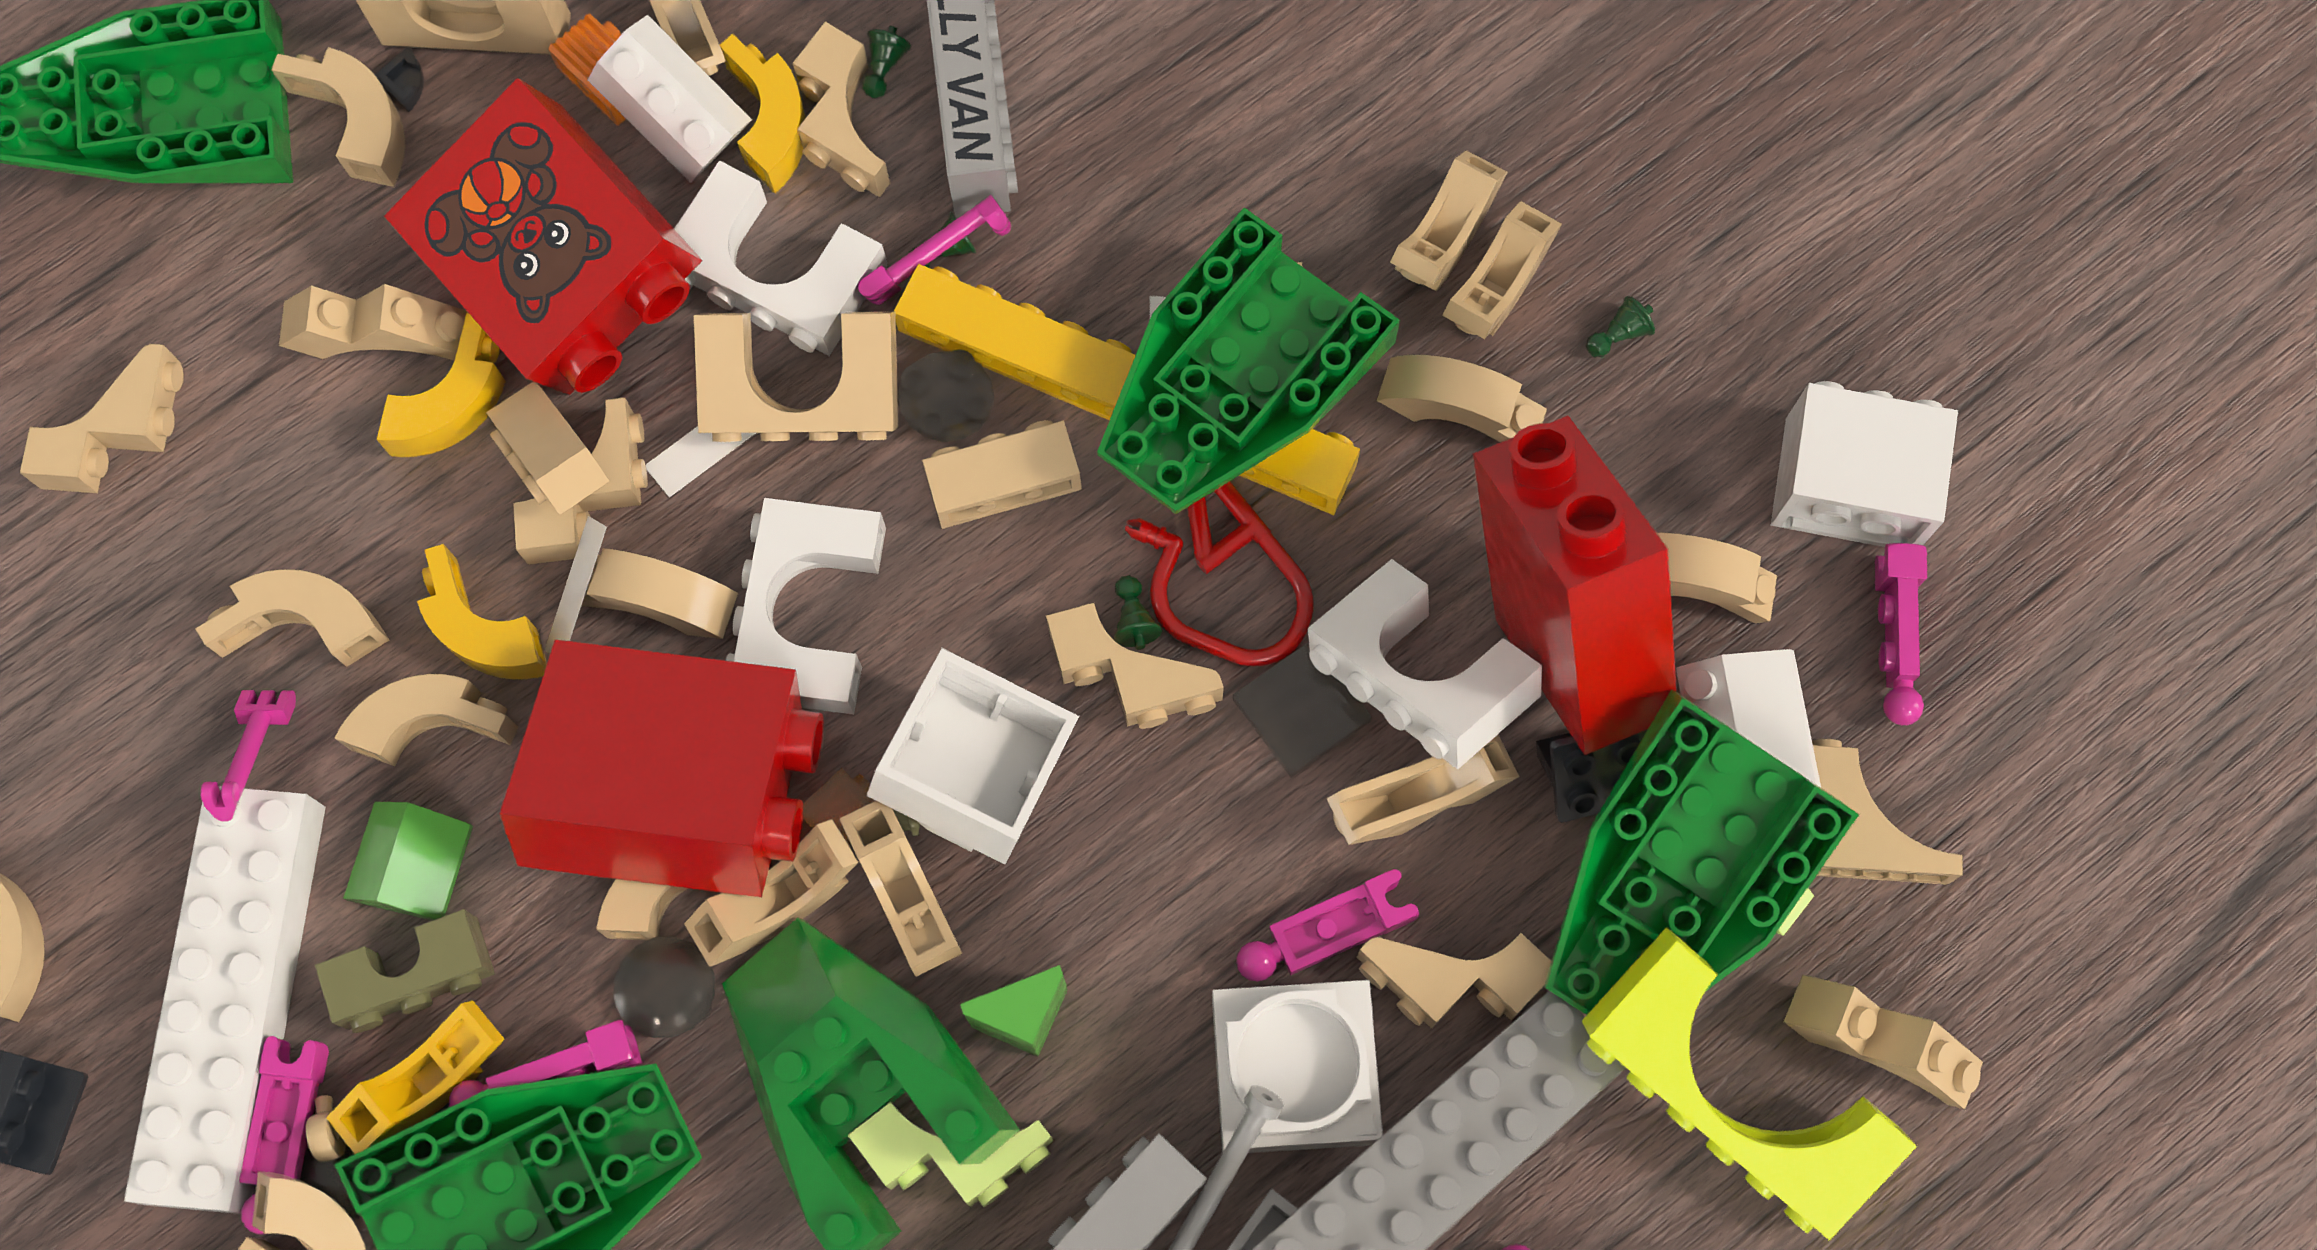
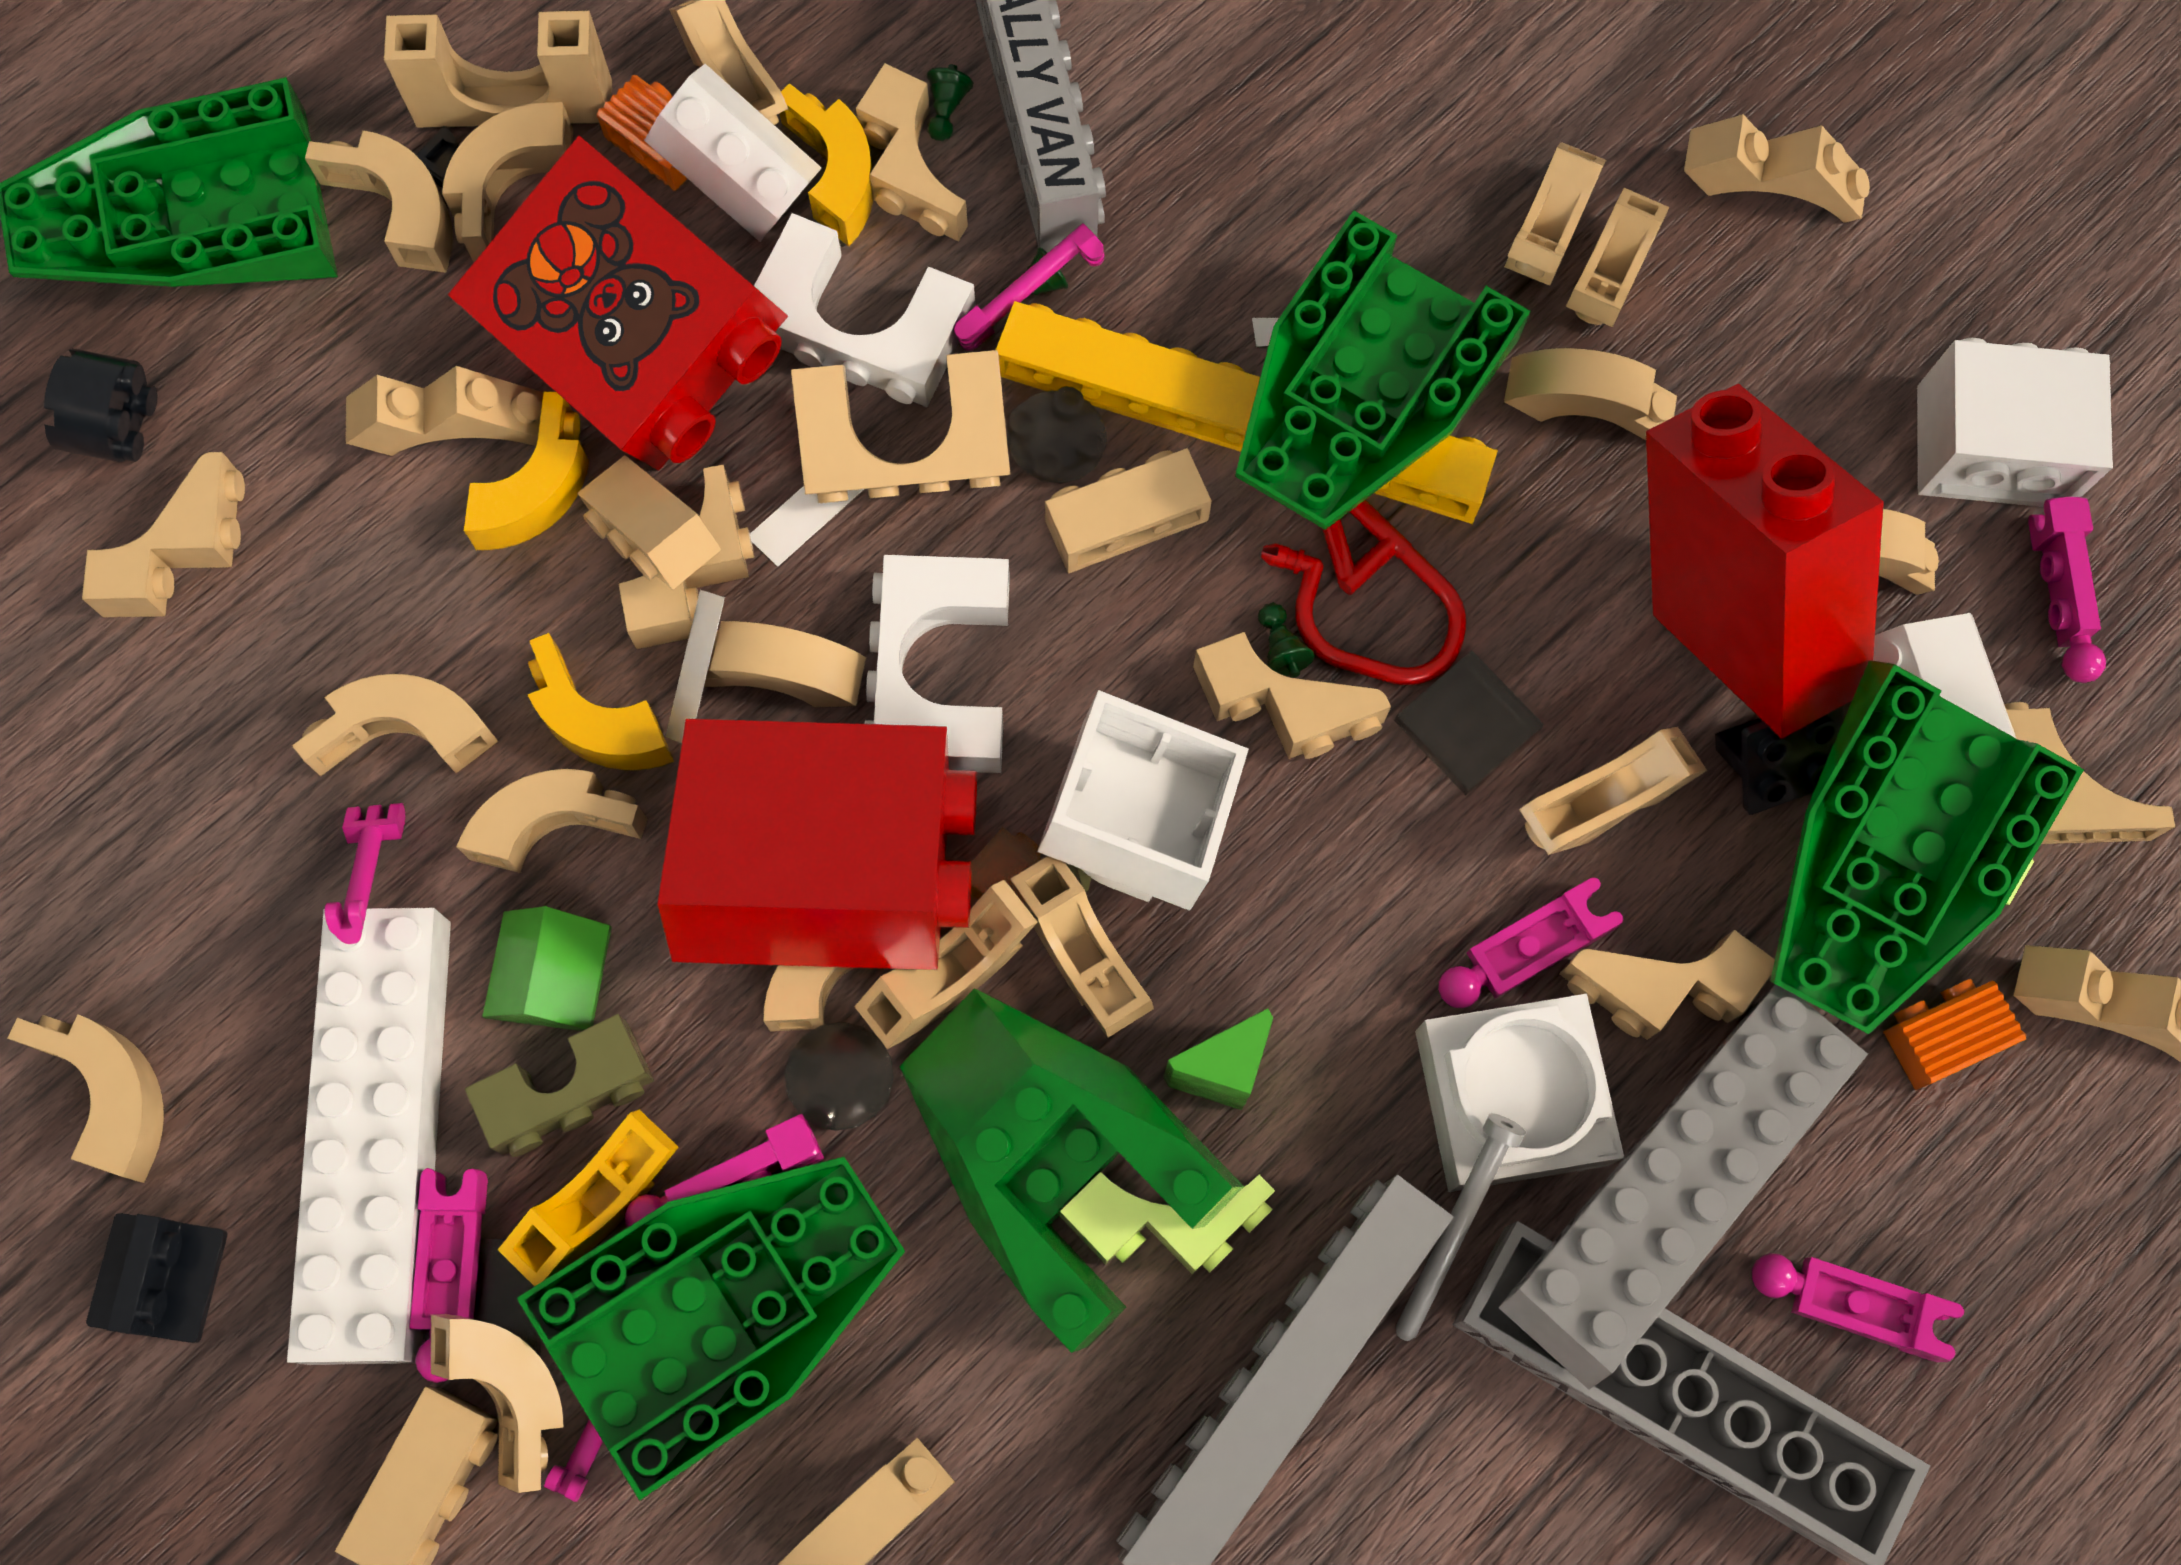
camera: 10 degrees left, 0 degrees up
(55, 290) = (98, 405): none -> black brick
(321, 1136) = (494, 1269): tan piece -> none
(450, 81) = (496, 156): none -> tan arch
(1448, 715) = (1631, 711): white arch -> none
(1629, 323) = (1750, 300): dark green piece -> none
(1696, 193) = (1803, 165): none -> tan arch
(1734, 1048) = (1953, 1034): none -> orange brick
(1815, 1170) = (1893, 1012): neon yellow arch -> none

